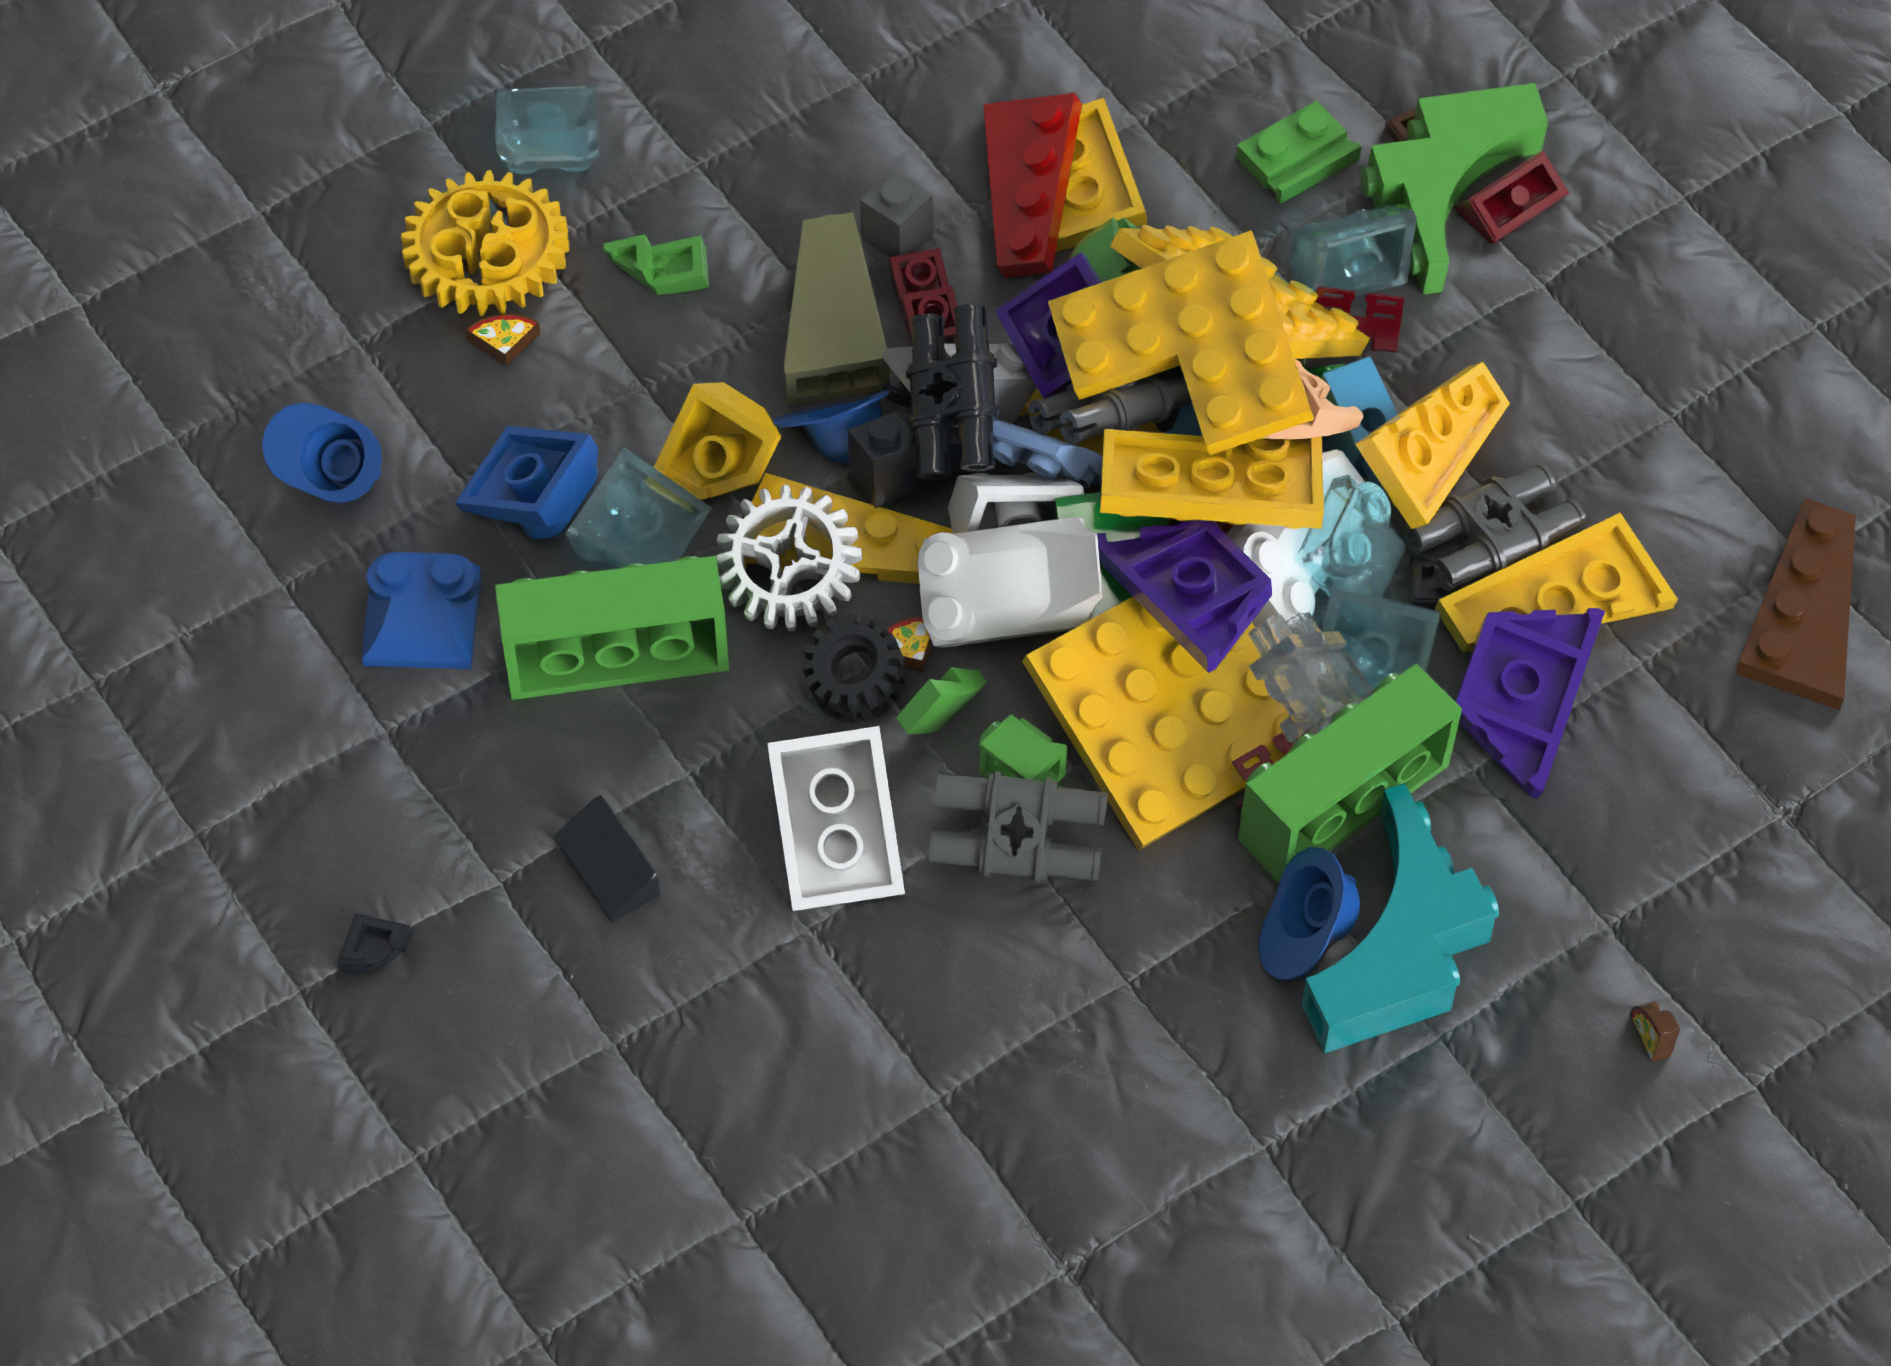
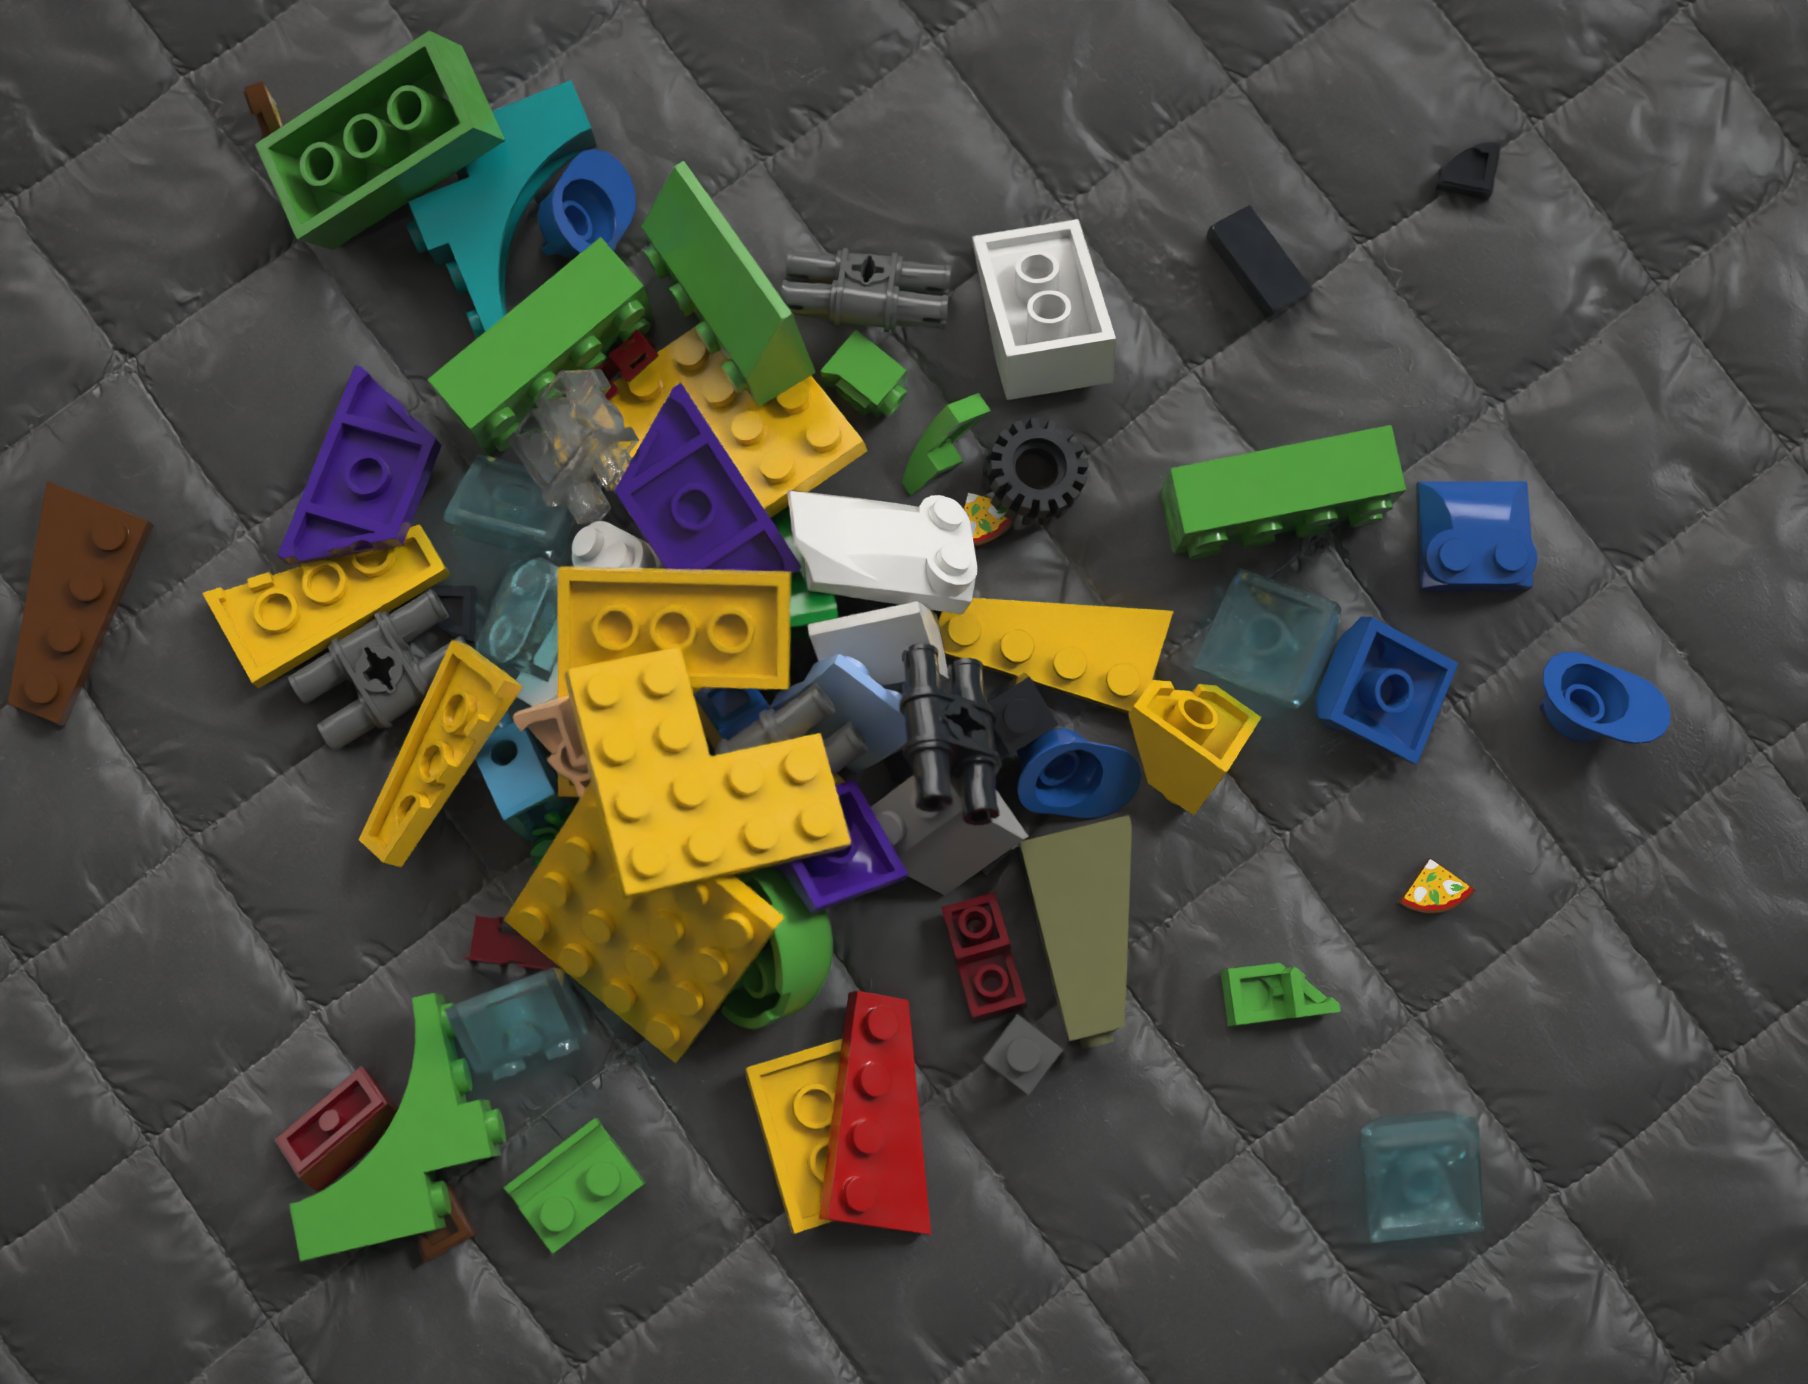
camera: 175 degrees right, 25 degrees up
(512, 257) = (1520, 1018): yellow gear -> none
(810, 565) = (1149, 597): white gear -> none
(1161, 804) = (724, 290): none -> bright green slope
(1526, 954) = (380, 141): none -> bright green brick

